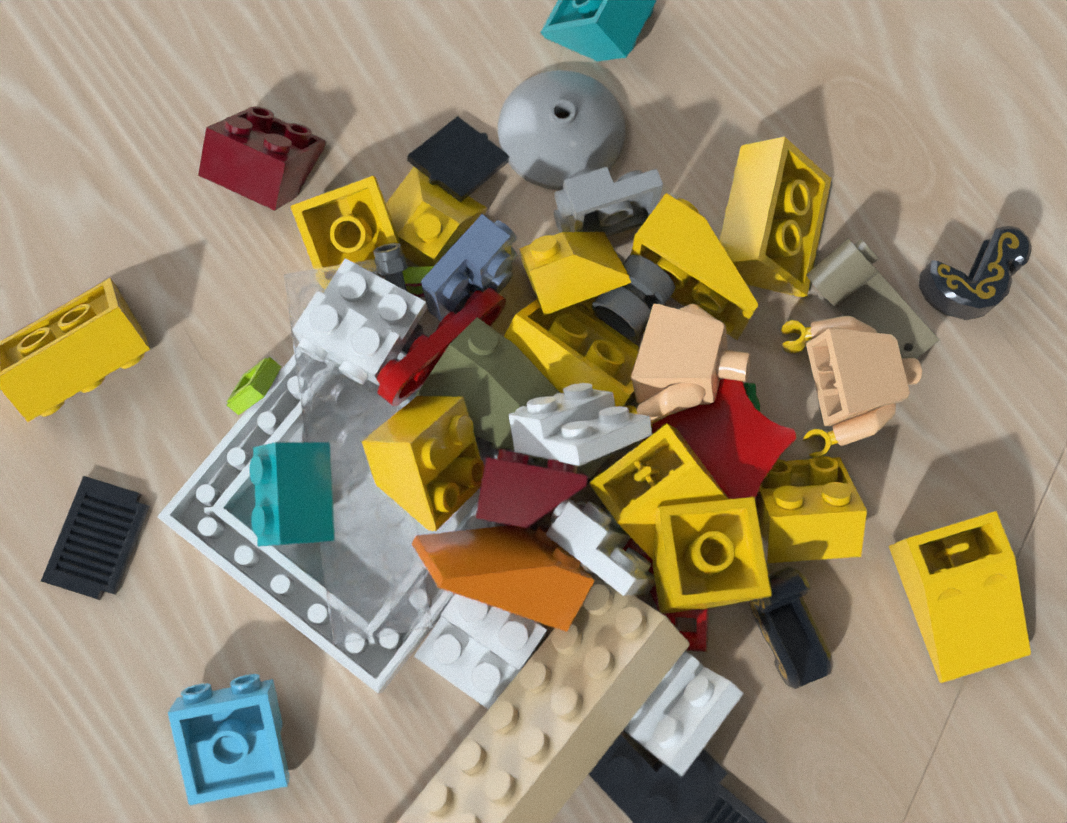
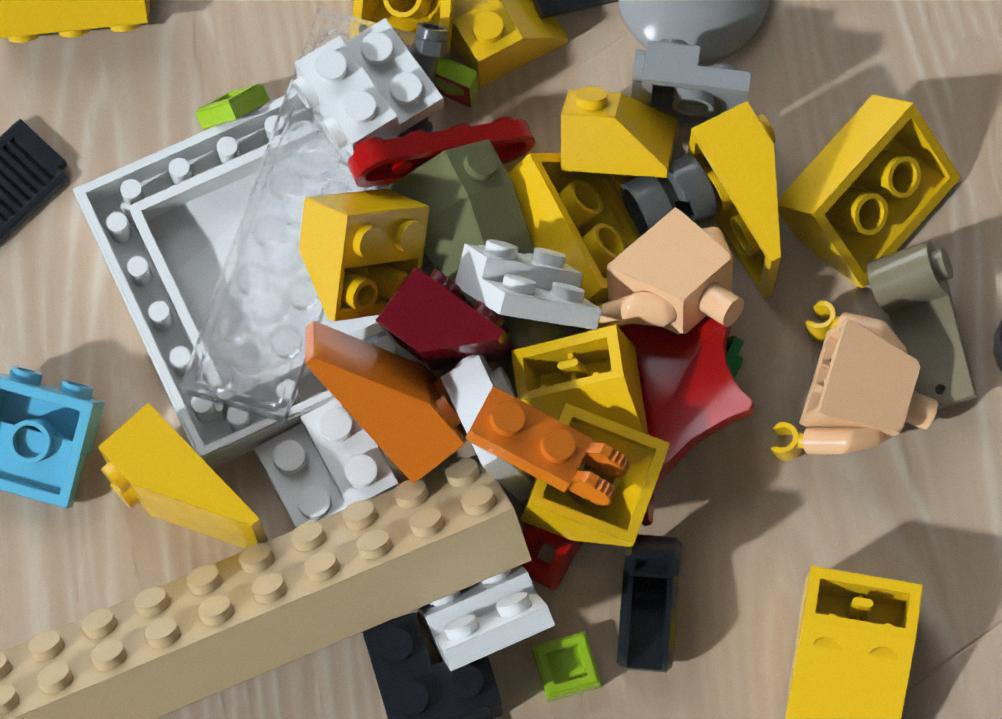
camera: 30 degrees right, 5 degrees down
(292, 493) = (213, 221): teal slope -> none
(354, 721) = (173, 483): none -> yellow slope
(473, 263) = (516, 83): sand blue plate -> none
(665, 554) = (545, 447): none -> orange hinge
(753, 709) = (566, 666): none -> lime tile
(810, 511) = (732, 499): yellow slope -> none

